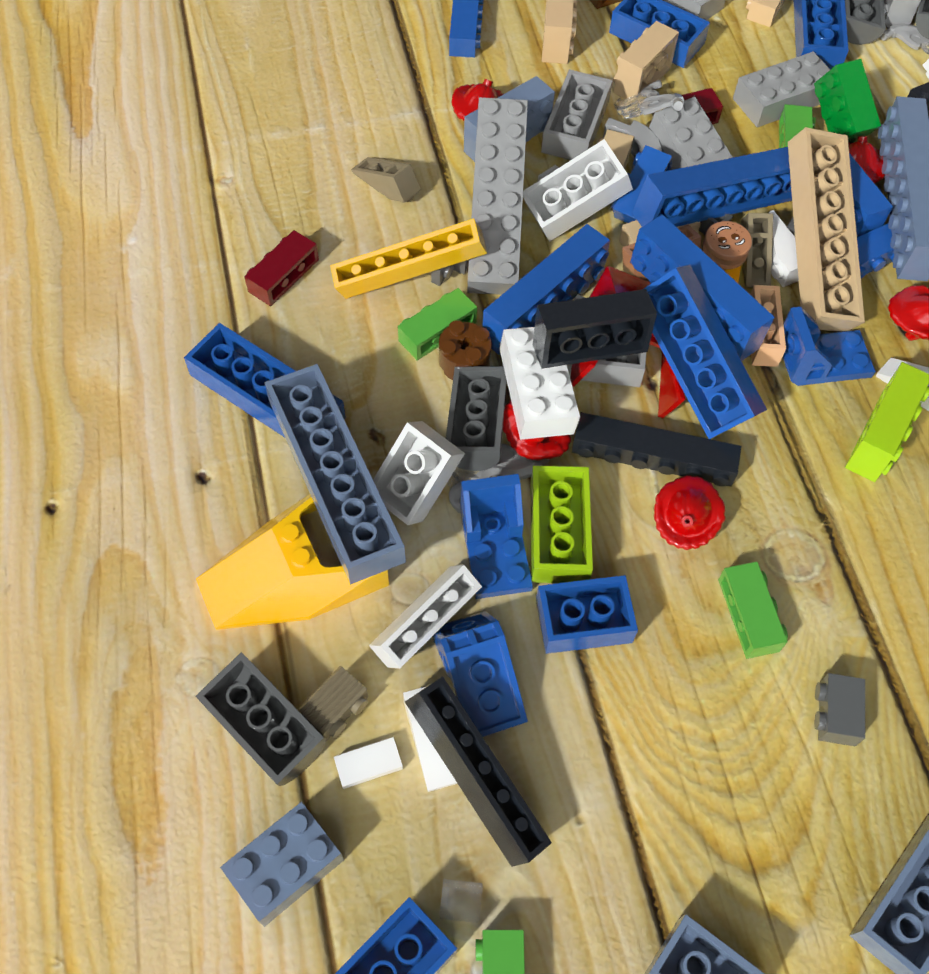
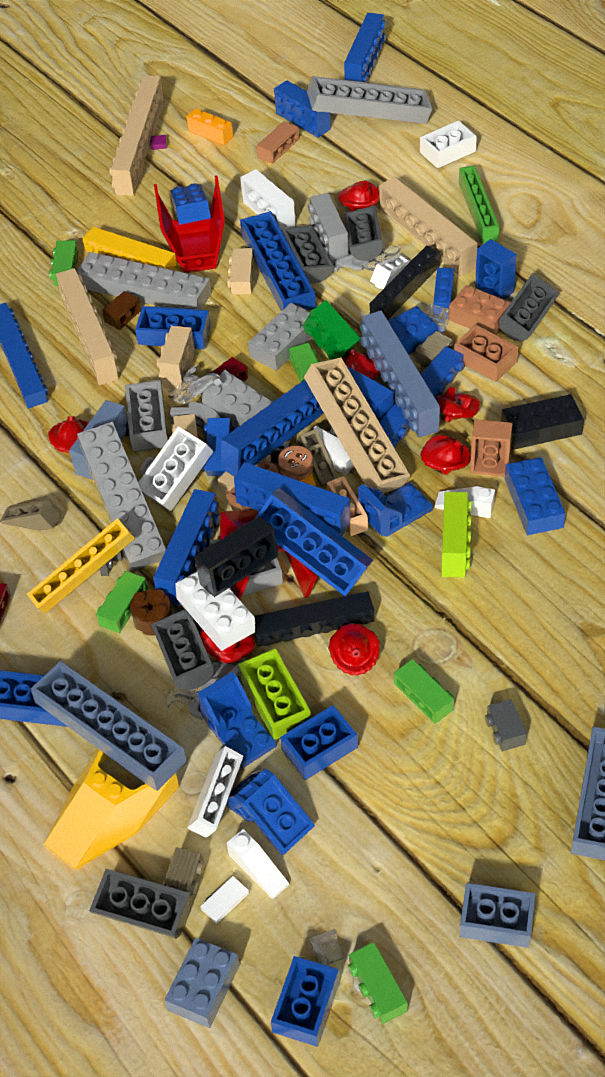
camera: 20 degrees left, 10 degrees down
(416, 471) = (163, 700): white brick -> none
(478, 773) = (298, 864): black brick -> none

